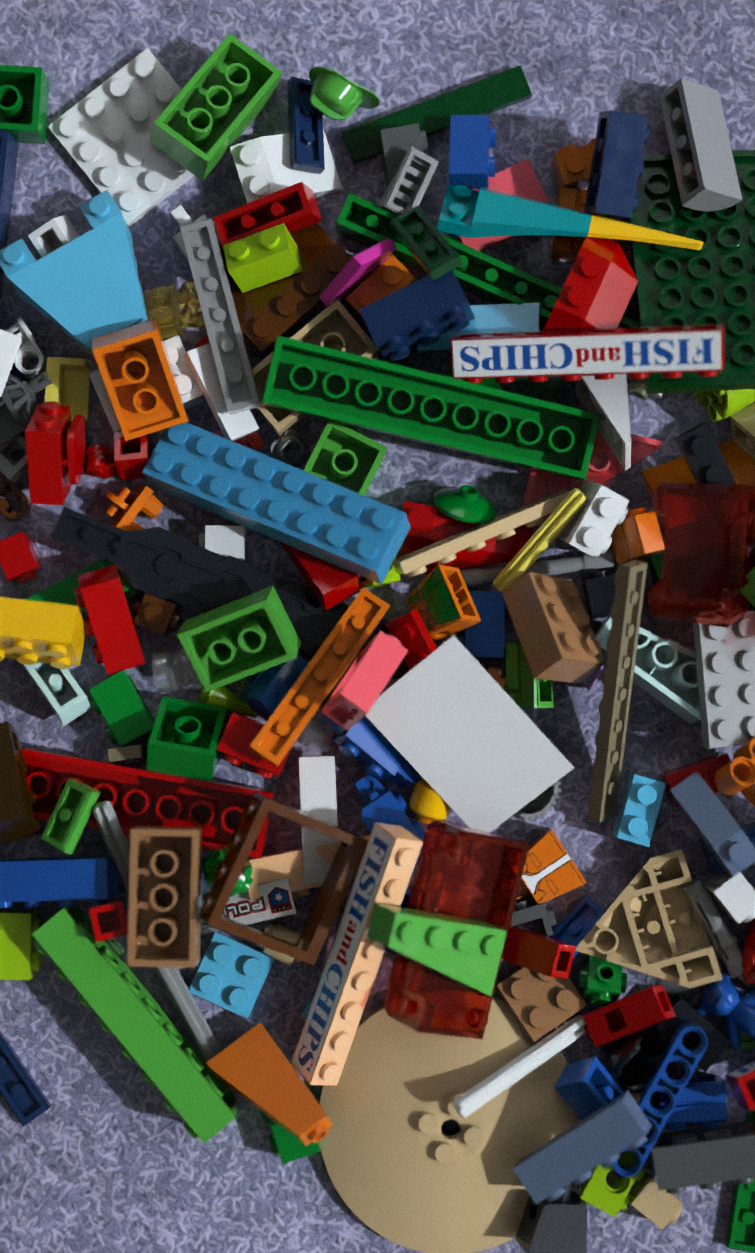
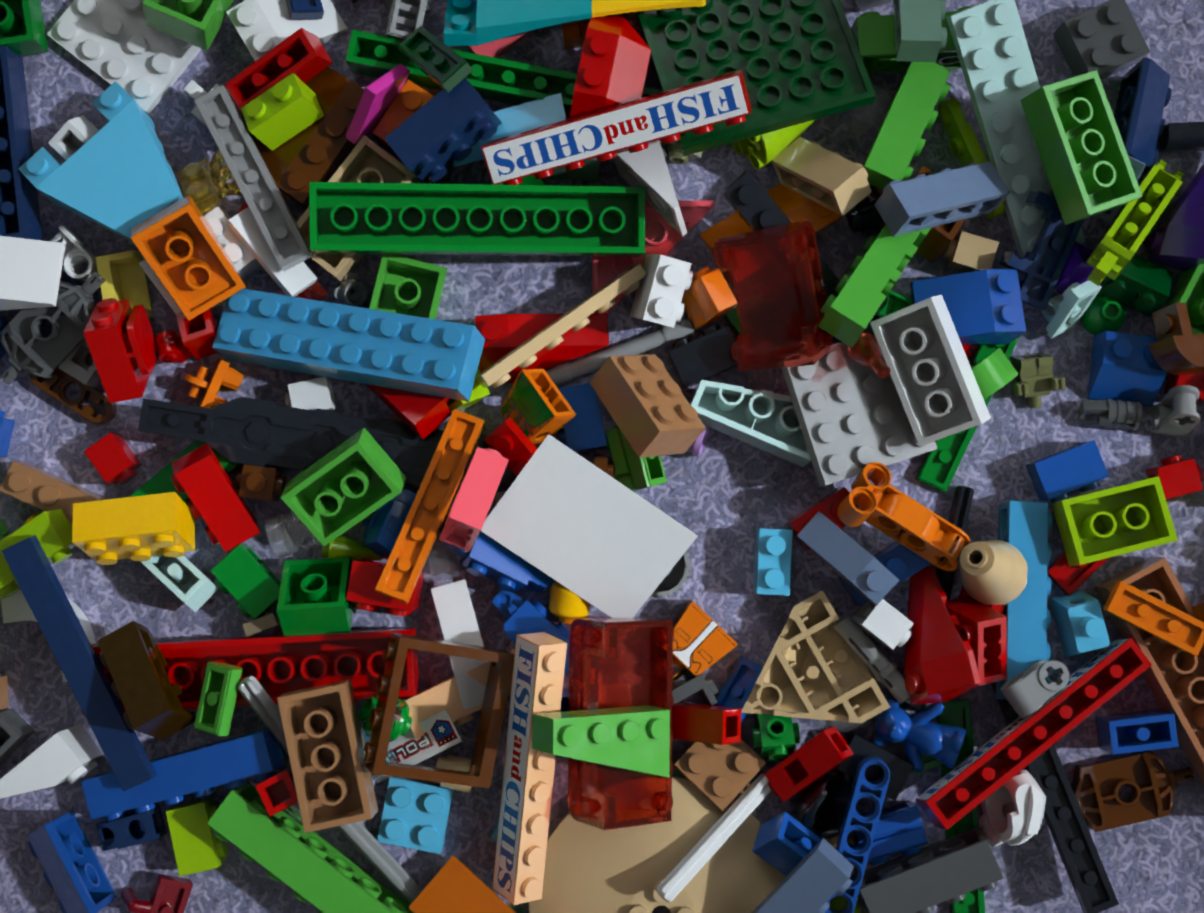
camera: 15 degrees left, 0 degrees up
(465, 504) = (535, 305): green dish -> none
(541, 539) = (616, 321): light yellow axle -> none
(617, 690) = (723, 450): dark tan plate -> none

